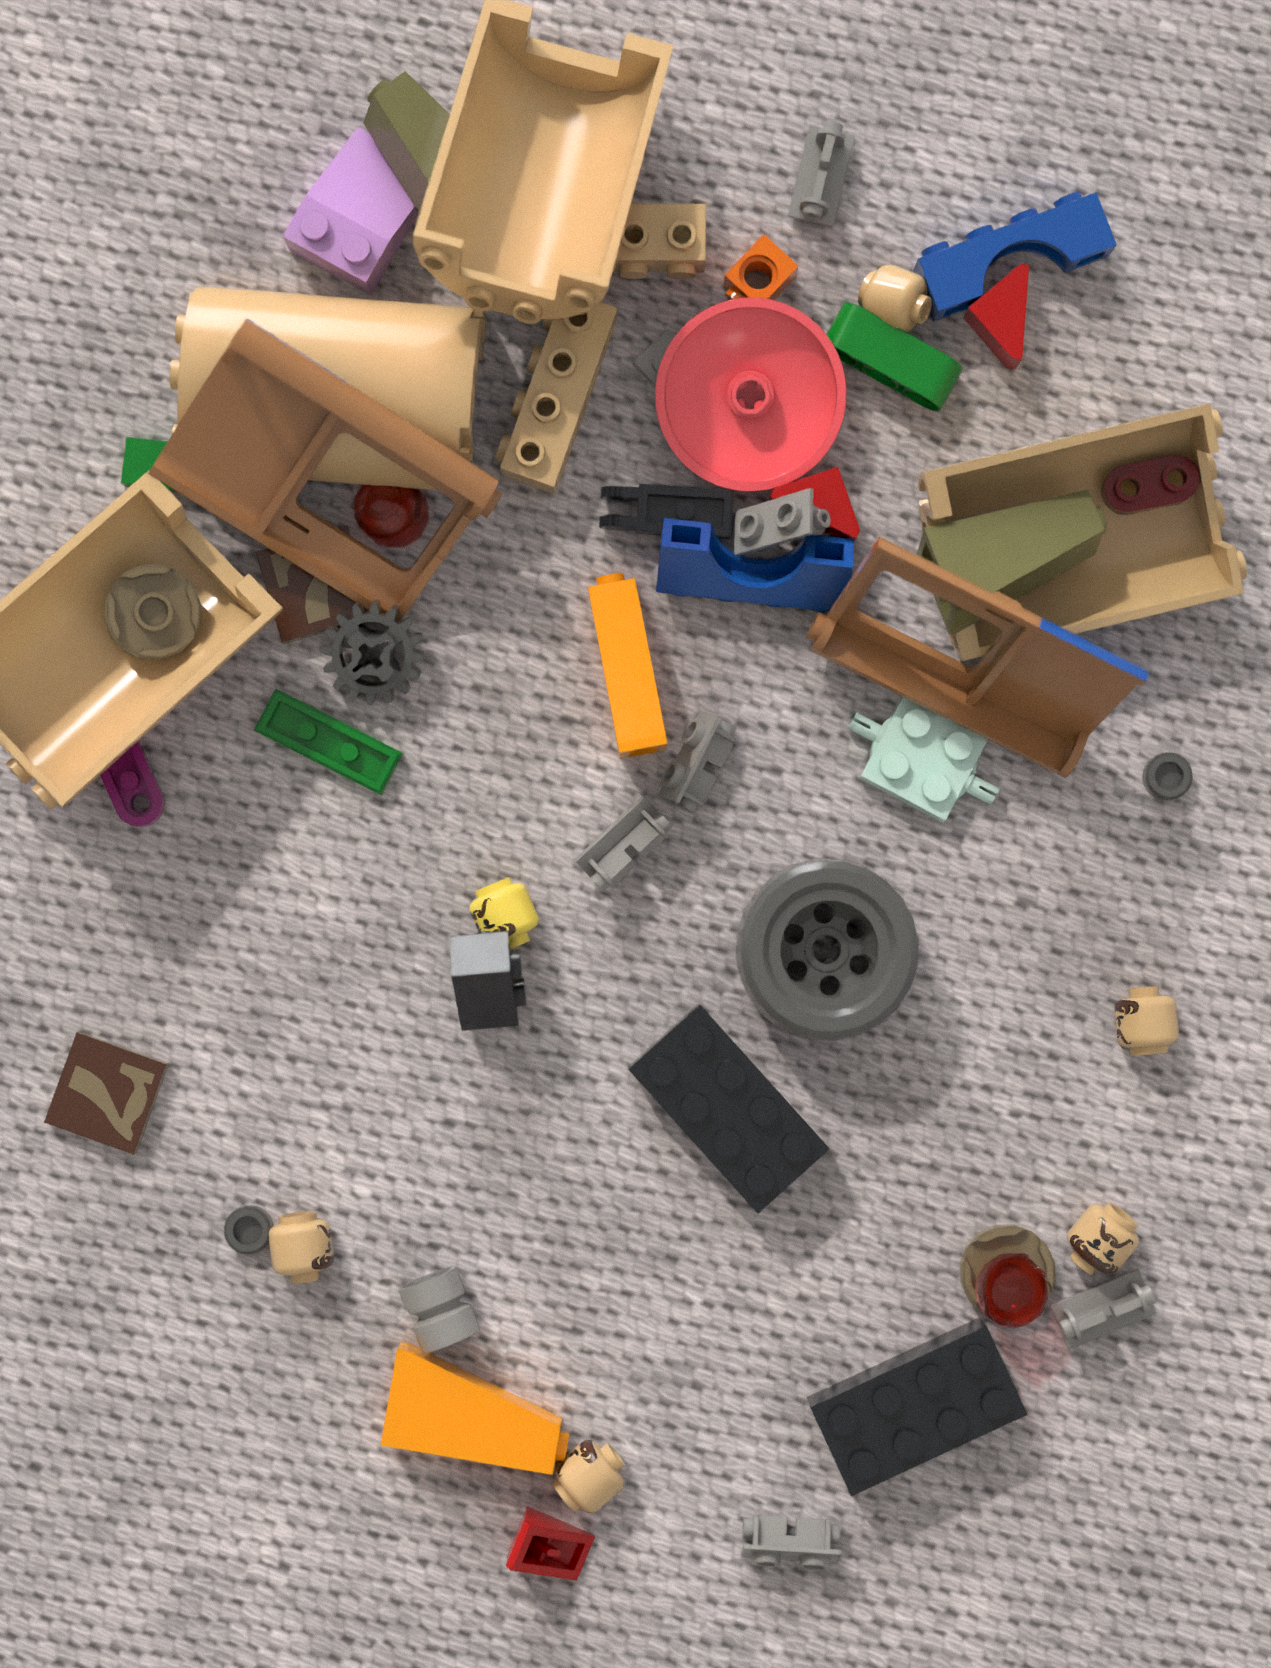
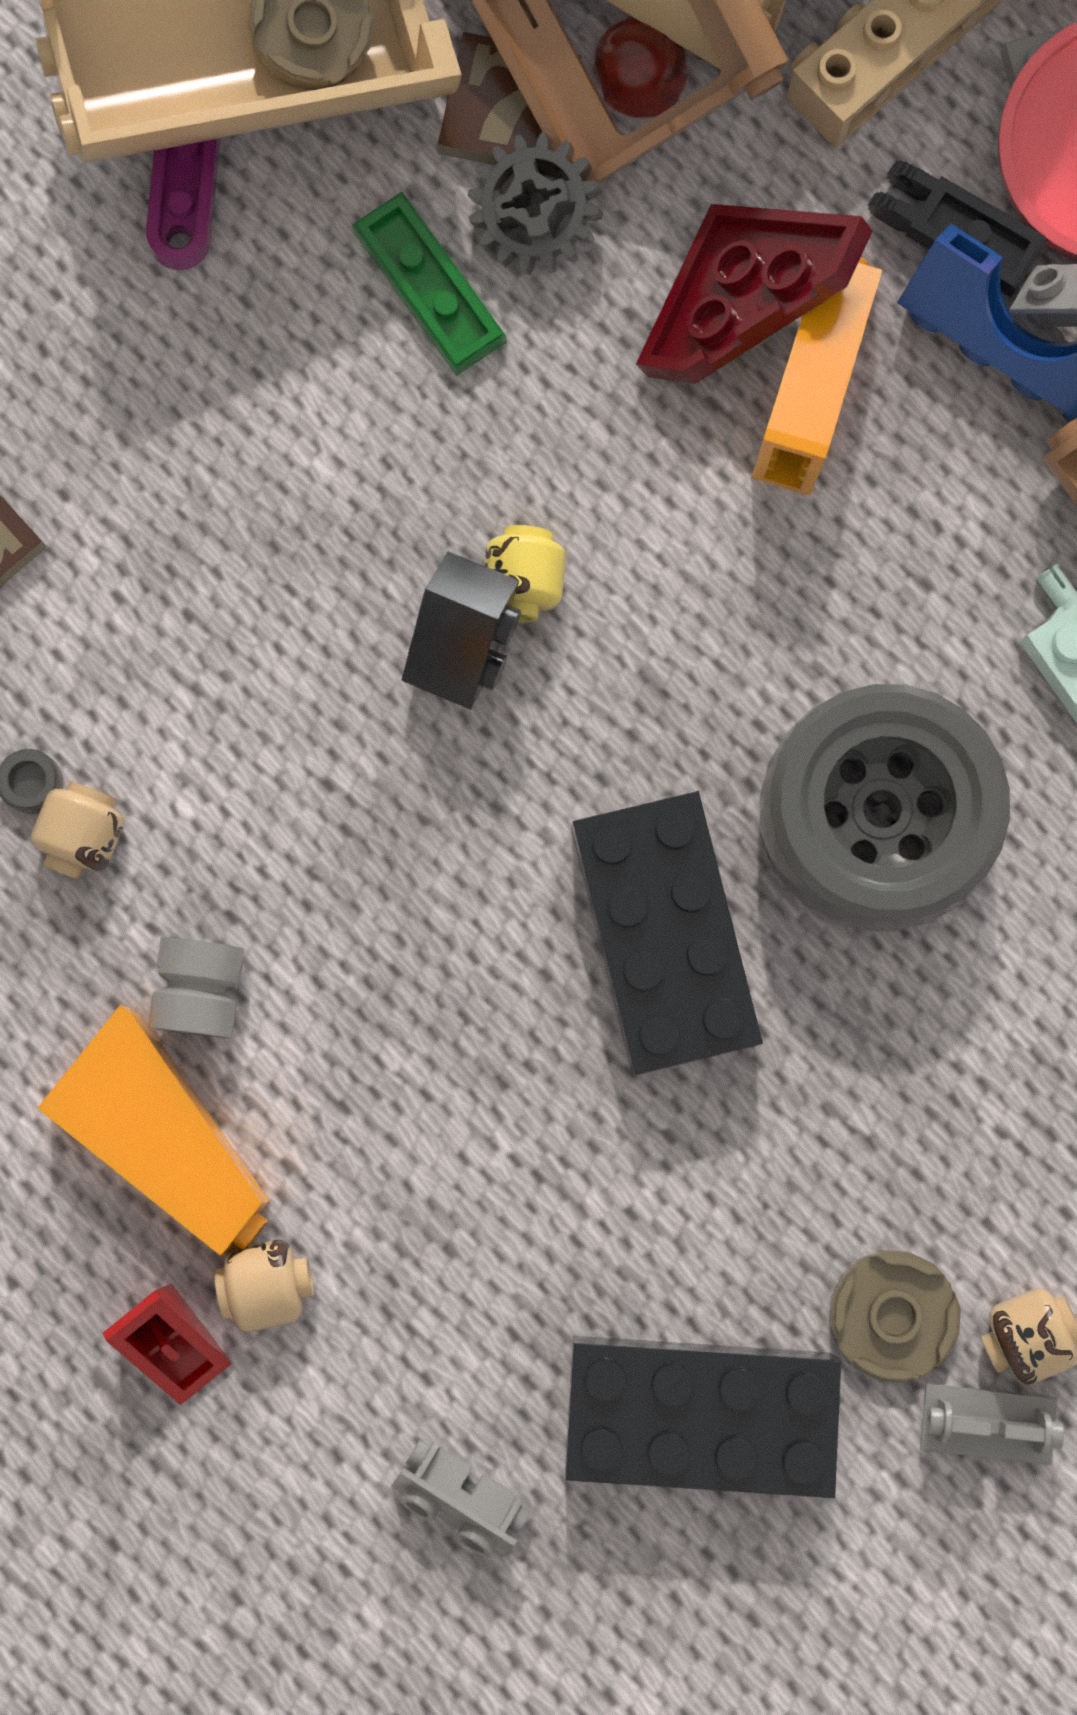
camera: 30 degrees right, 5 degrees down
(547, 636) = (747, 281): none -> dark red plate
(633, 832) = (705, 566): light grey hinge -> none
(704, 741) = (819, 531): light grey hinge -> none
(1011, 1290) = (893, 1334): clear red hair -> none

